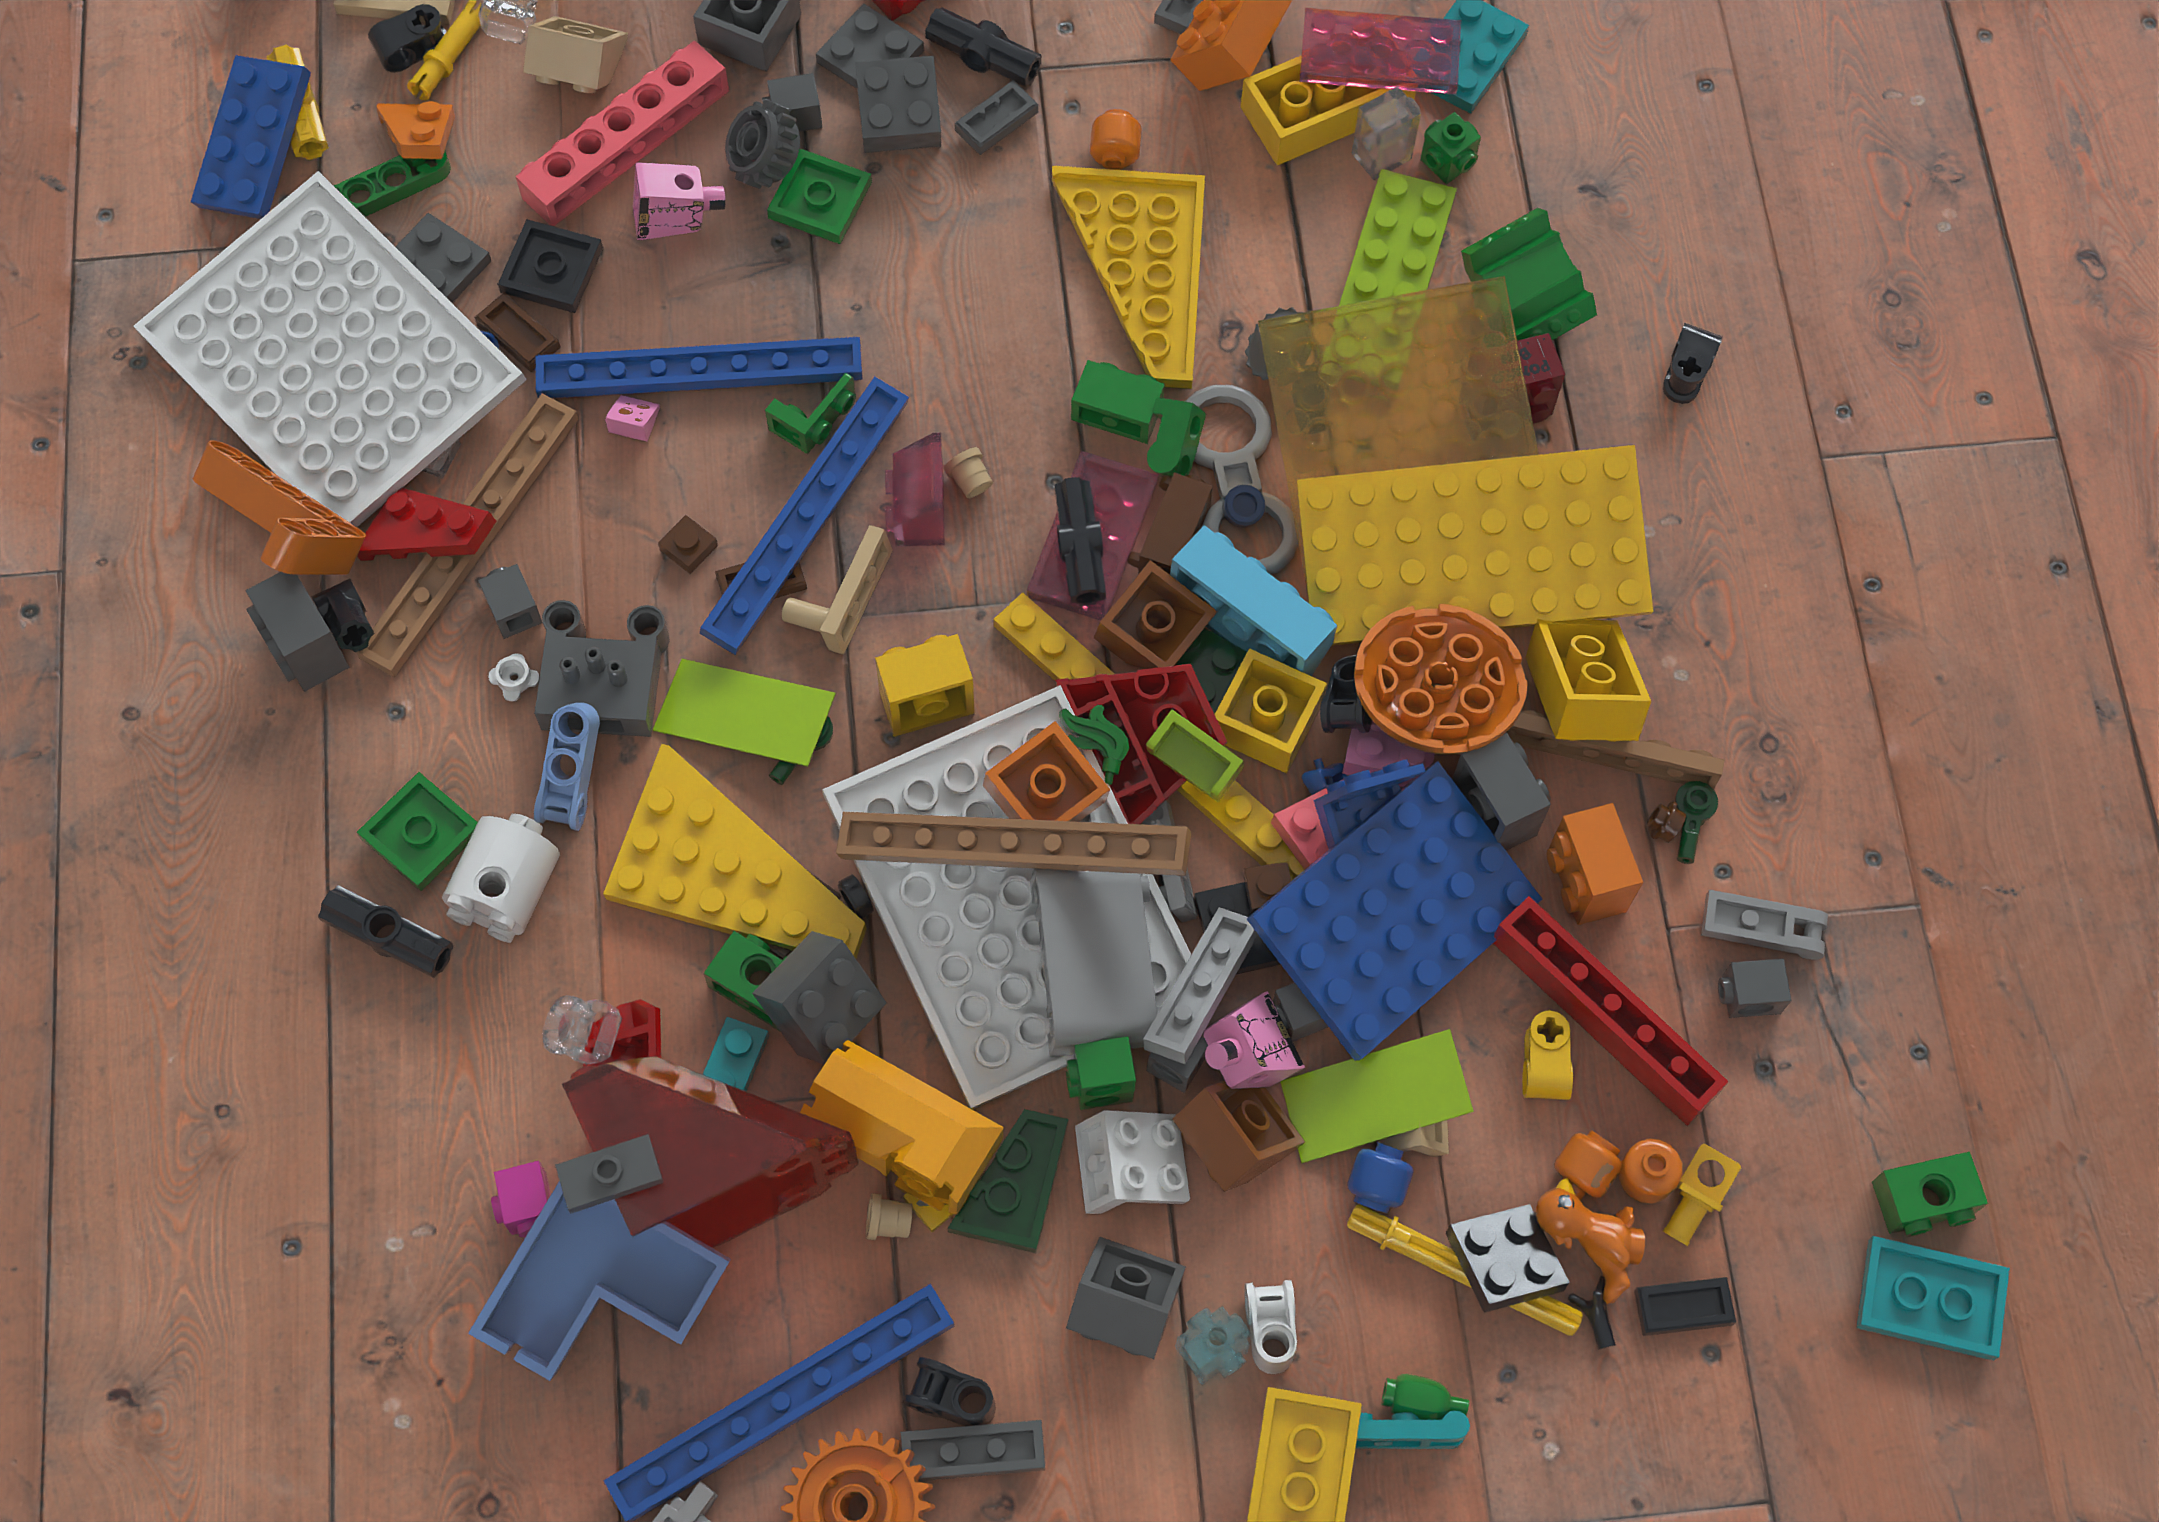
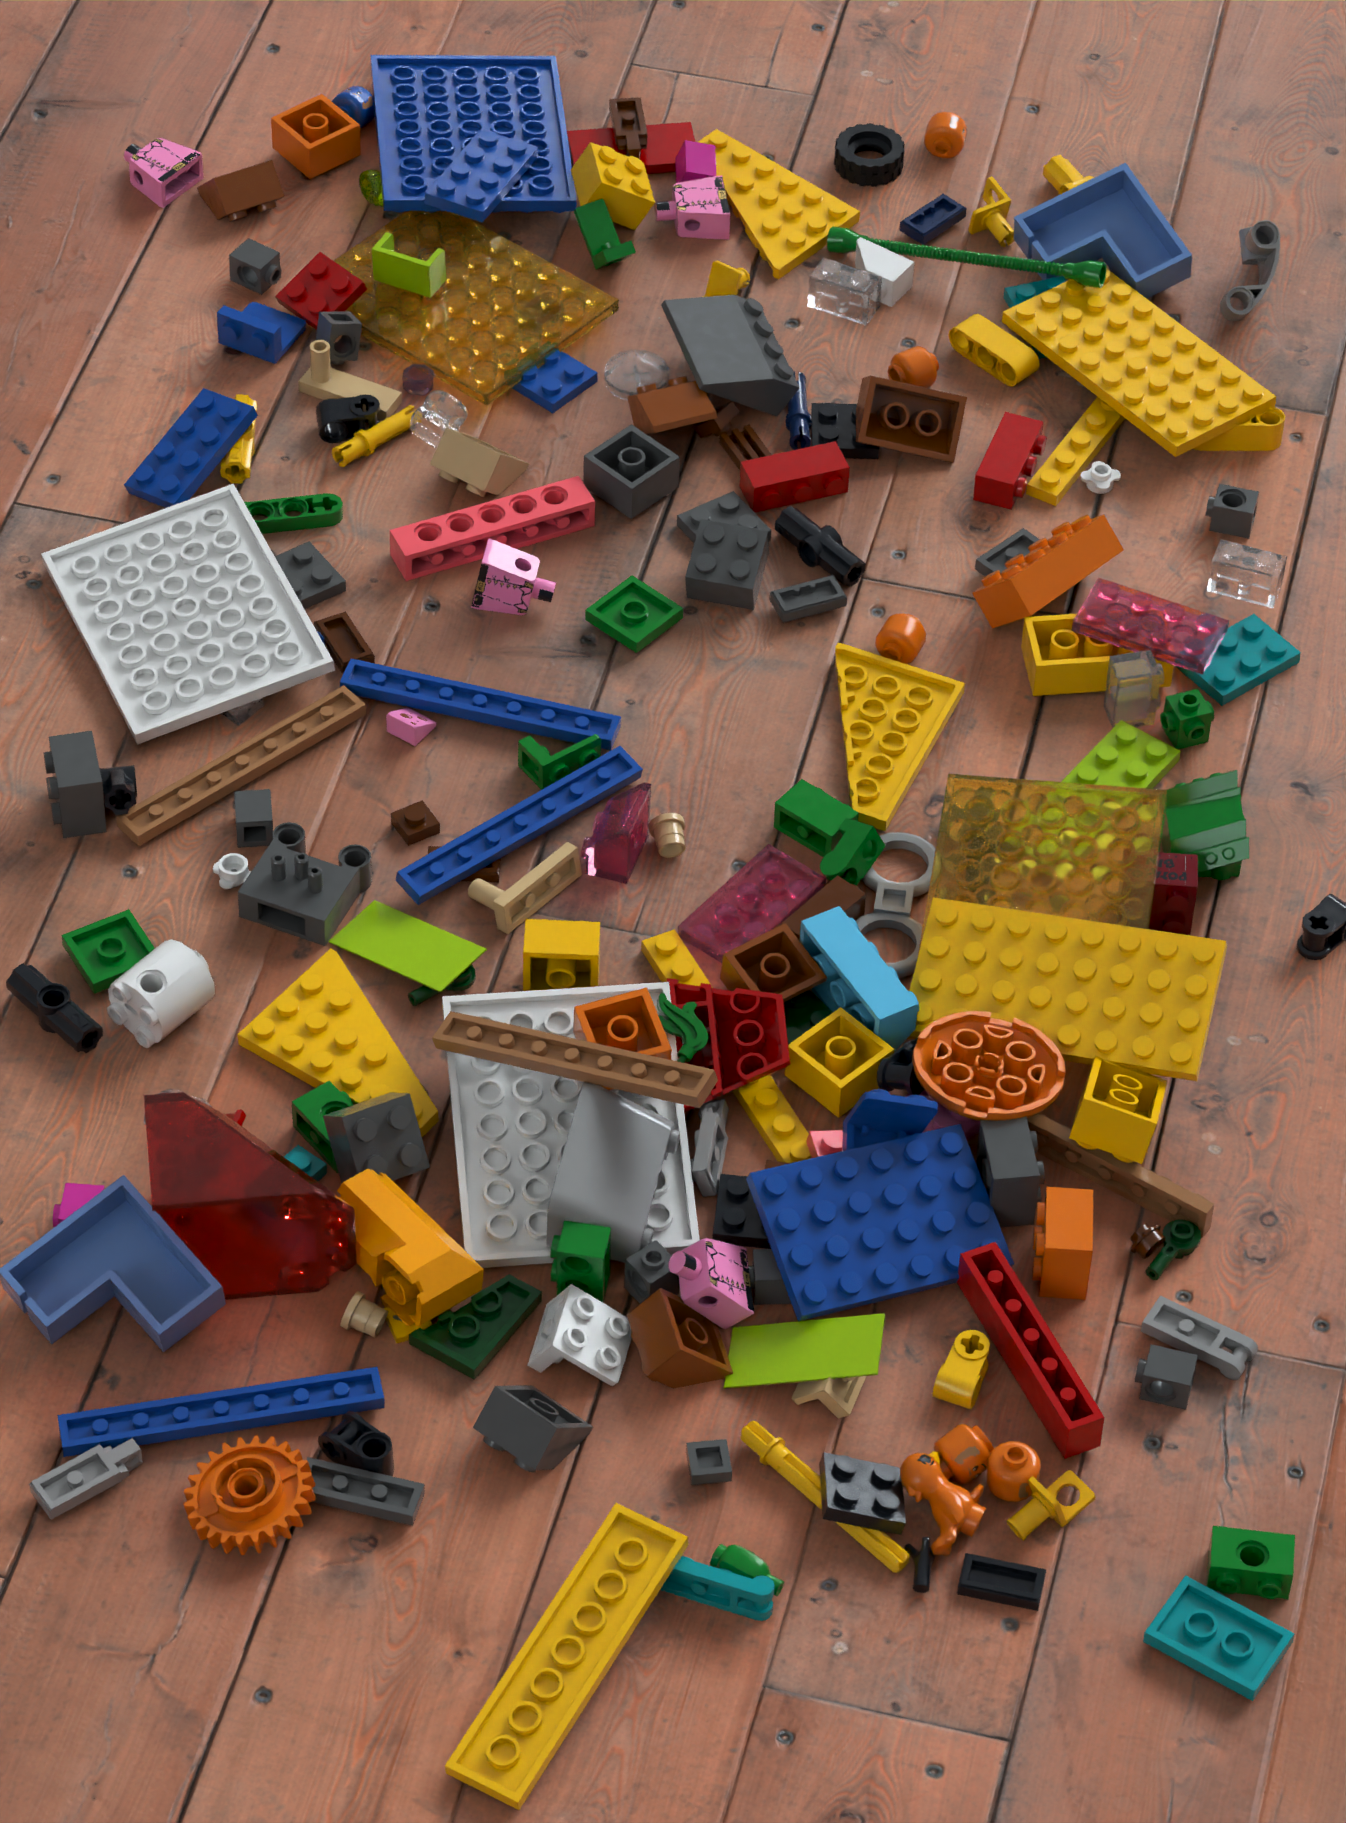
camera: 20 degrees right, 20 degrees down
(303, 532) = (99, 704): orange beam -> none
(418, 129) = (328, 481): orange wing -> none
(425, 524) = (207, 744): red wing -> none
(550, 266) = (391, 603): black plate -> none
(564, 796) = (241, 954): light blue piece -> none
(609, 1173) = (153, 1158): dark grey plate -> none
(762, 144) = (601, 561): dark grey gear -> none
(799, 96) = (641, 544): dark grey brick -> none
(855, 896) = (439, 1093): black tile -> none
(1080, 541) = (735, 900): black piece -> none
(1195, 755) = (755, 1056): lime panel -> none
(1200, 986) = (689, 1221): light grey plate -> none
(1206, 1358) = (588, 1475): clear light blue brick -> none
(1243, 506) = (888, 919): dark blue tile -> none
(1271, 1316) = (645, 1480): white piece -> none
(1328, 1272) = (709, 1462): none -> dark grey plate
(1380, 1178) = (782, 1408): blue head -> none

